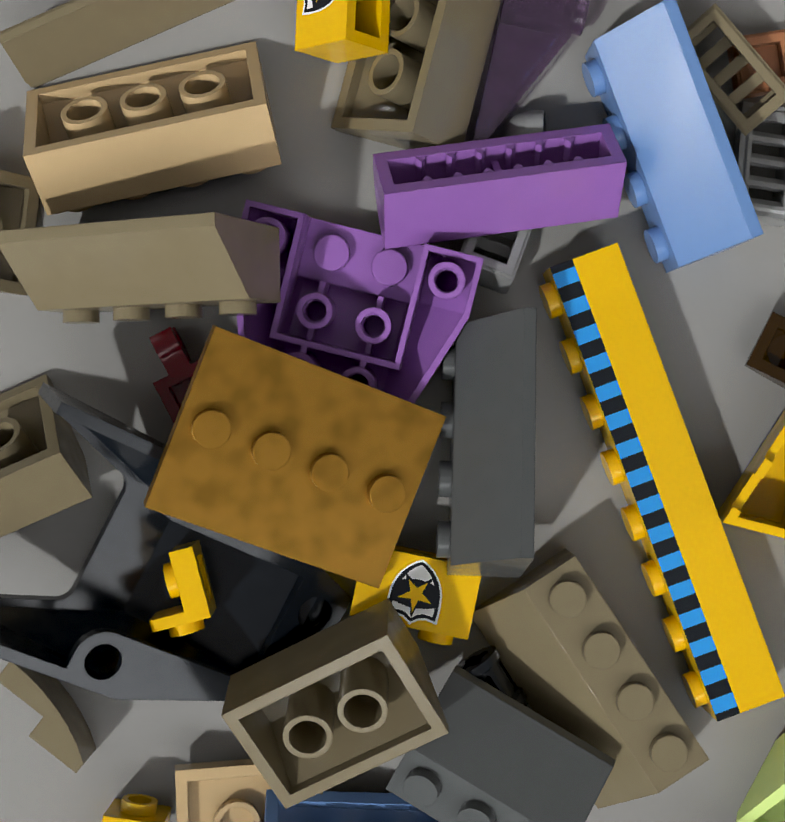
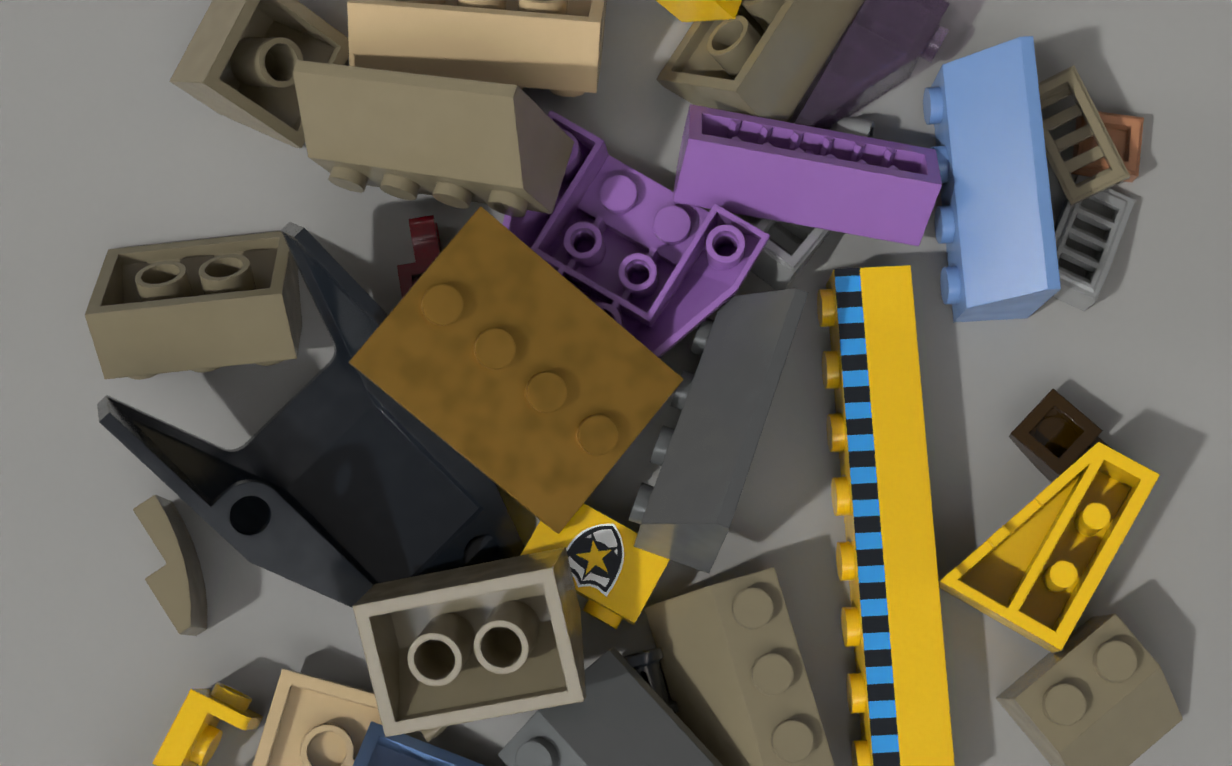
camera: 20 degrees right, 10 degrees down
(188, 579) = (366, 473): yellow bracket -> none

